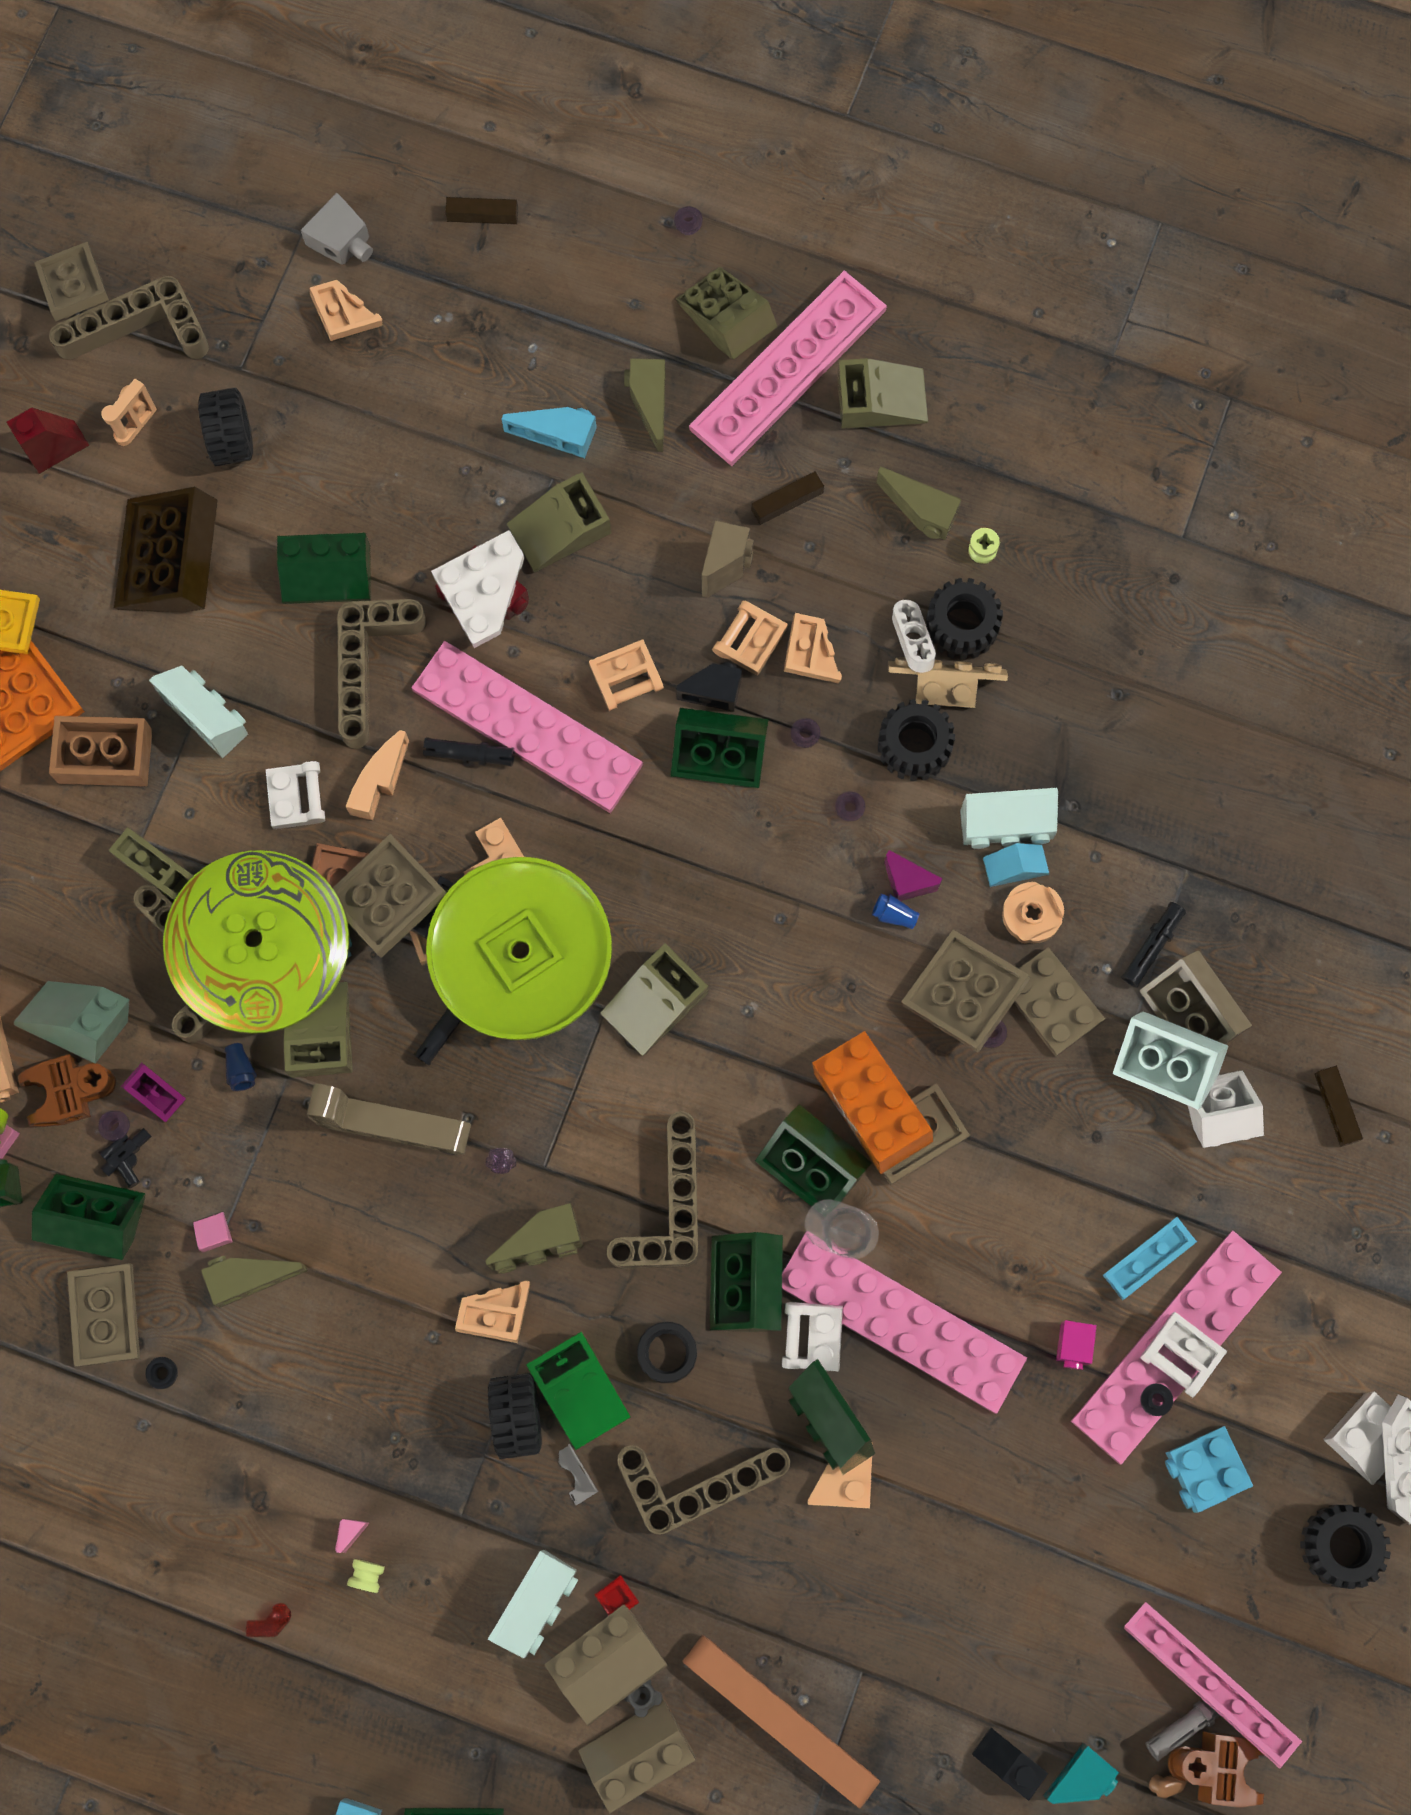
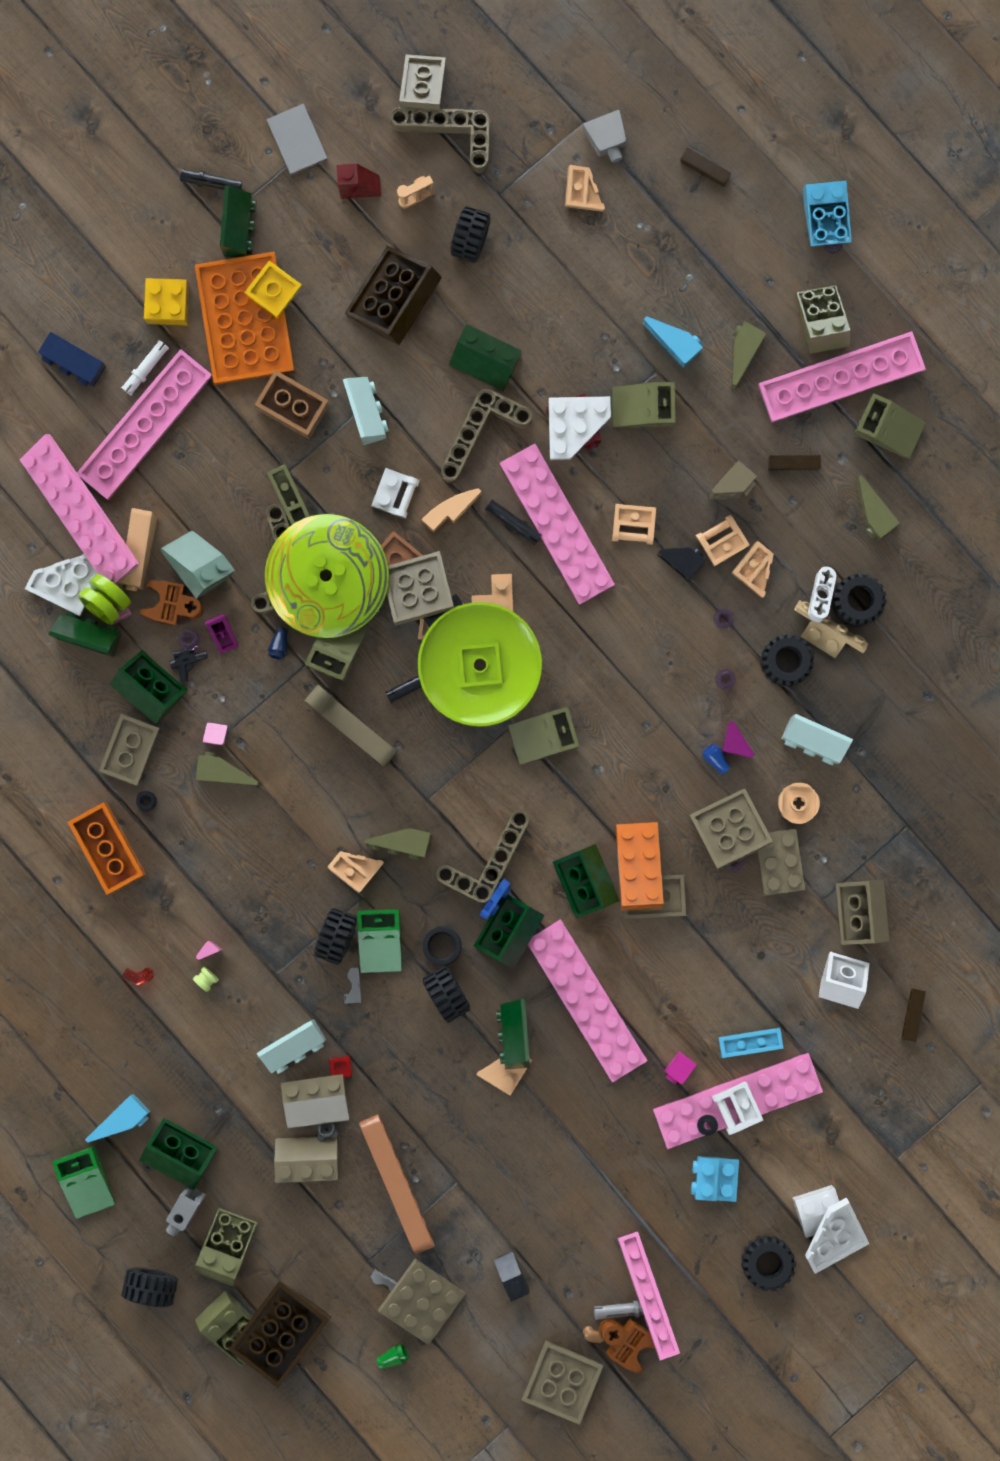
camera: 25 degrees right, 10 degrees up
(136, 1467) = (106, 848): none -> orange brick
(501, 1160) = (404, 782): plate -> none
(660, 185) = (827, 213): none -> medium azure slope
(699, 1491) = (418, 1034): dark tan beam -> none
(705, 1261) = (492, 906): none -> blue wing
(708, 1412) = (446, 994): none -> black tyre
(719, 747) = (666, 600): dark green slope -> none
(823, 1337) = (536, 985): white plate -> none
(841, 1229) = (580, 930): clear piece -> none
(982, 552) = (896, 562): yellowish green wheel -> none
(1015, 864) = (805, 768): medium azure slope -> none
(1083, 1778) = (548, 1306): teal slope -> none
(1169, 1059) = (828, 935): light aqua slope -> none
(1172, 916) = (881, 849): black pin -> none

